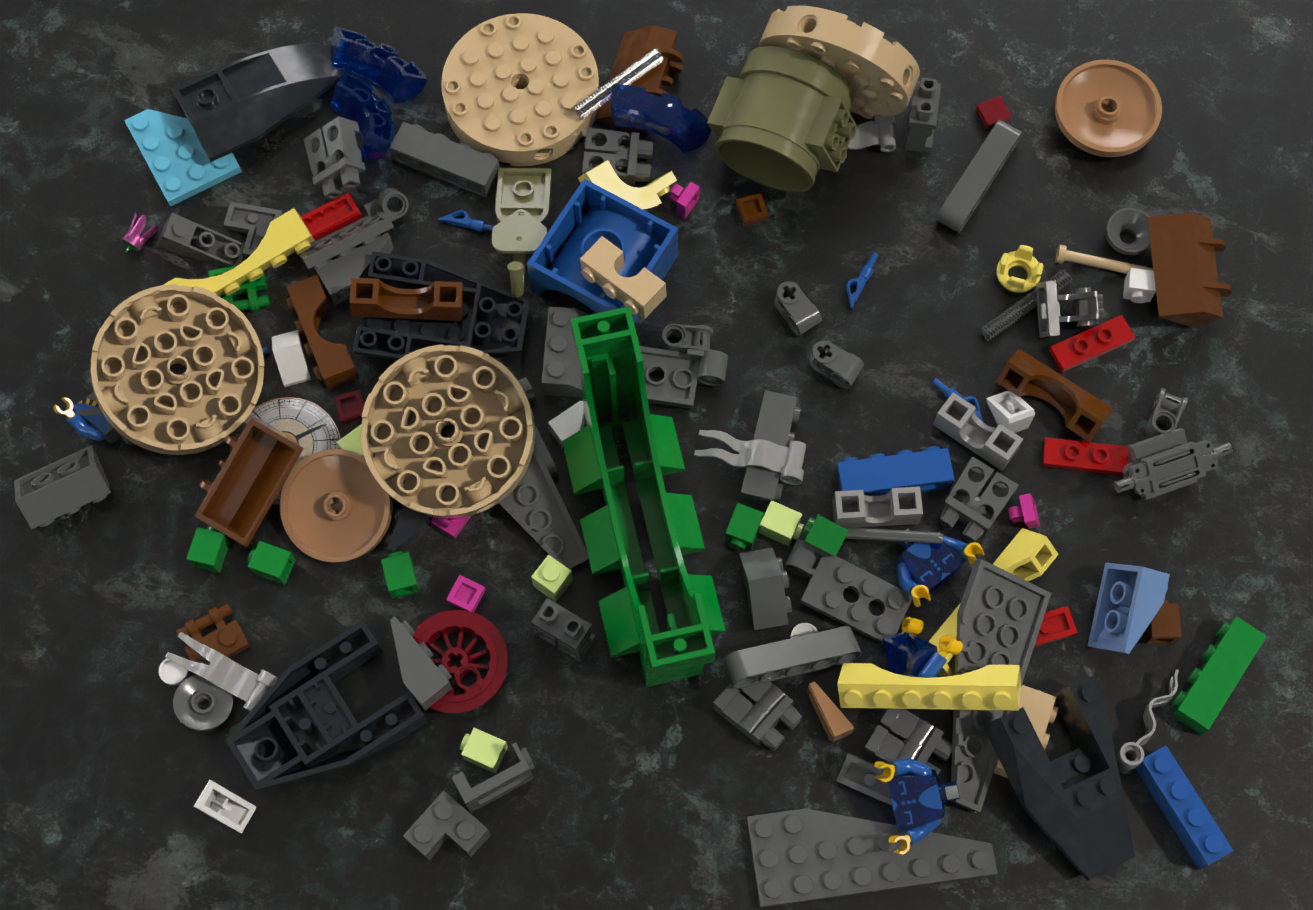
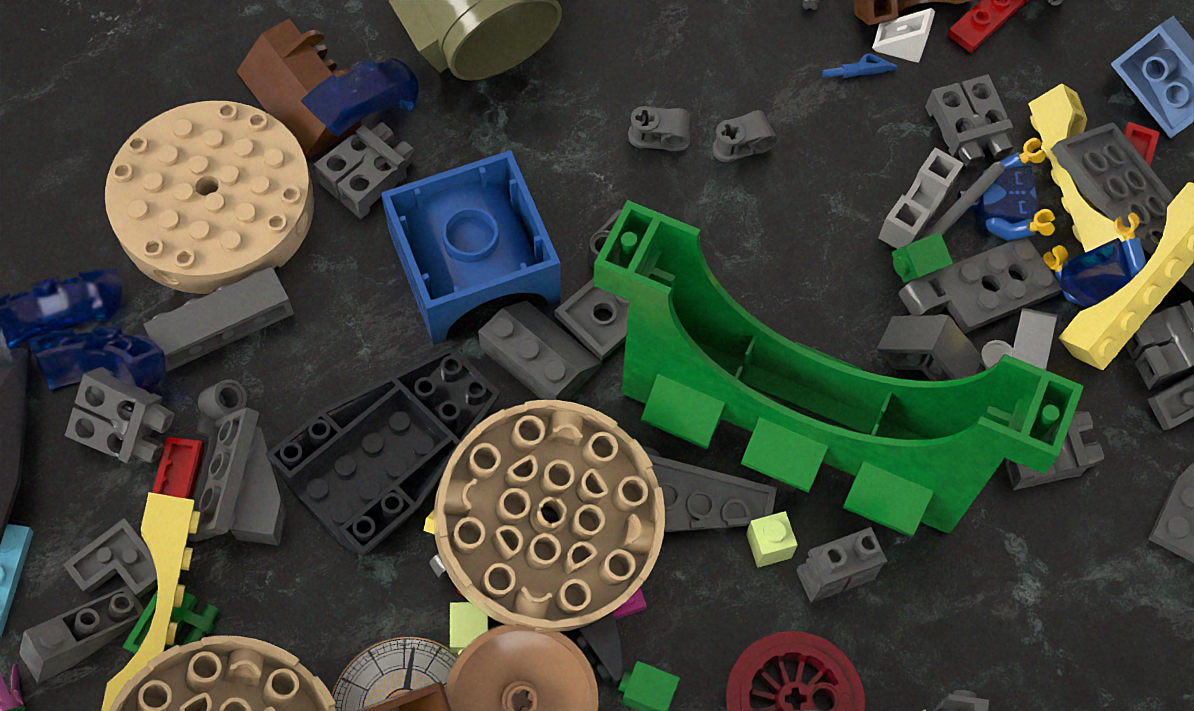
camera: 55 degrees left, 5 degrees down
(290, 358) = (301, 630): white slope -> none
(332, 359) = (346, 589): reddish brown arch -> none
(349, 406) = (411, 609): dark red tile -> none
(380, 300) = (328, 485): reddish brown arch -> none
(465, 594) = (726, 637): dark pink tile -> none
(466, 222) = (307, 348): blue hand -> none
(521, 217) = (353, 288): plate -> none
(567, 423) = (624, 408): white slope -> none
(622, 78) = (297, 110): axle -> none
(639, 292) = (502, 241): tan arch -> none
(644, 197) = (387, 177): light yellow arch -> none
(684, 198) = (462, 139): dark pink tile -> none
(743, 527) = (850, 327): green brick -> none
(752, 209) = (523, 95): reddish brown tile -> none
(759, 453) = (792, 256): light grey flag -> none
(774, 425) = (786, 250): dark grey brick -> none
(781, 523) = (871, 293): yellowish green brick -> none
(831, 718) = (1104, 388): medium nougat slope -> none
(860, 282) = (675, 62): blue hand -> none
(880, 473) = (894, 167): blue brick -> none
(960, 422) = (931, 68): light grey arch -> none
(1026, 512) = (1012, 90): dark pink tile -> none

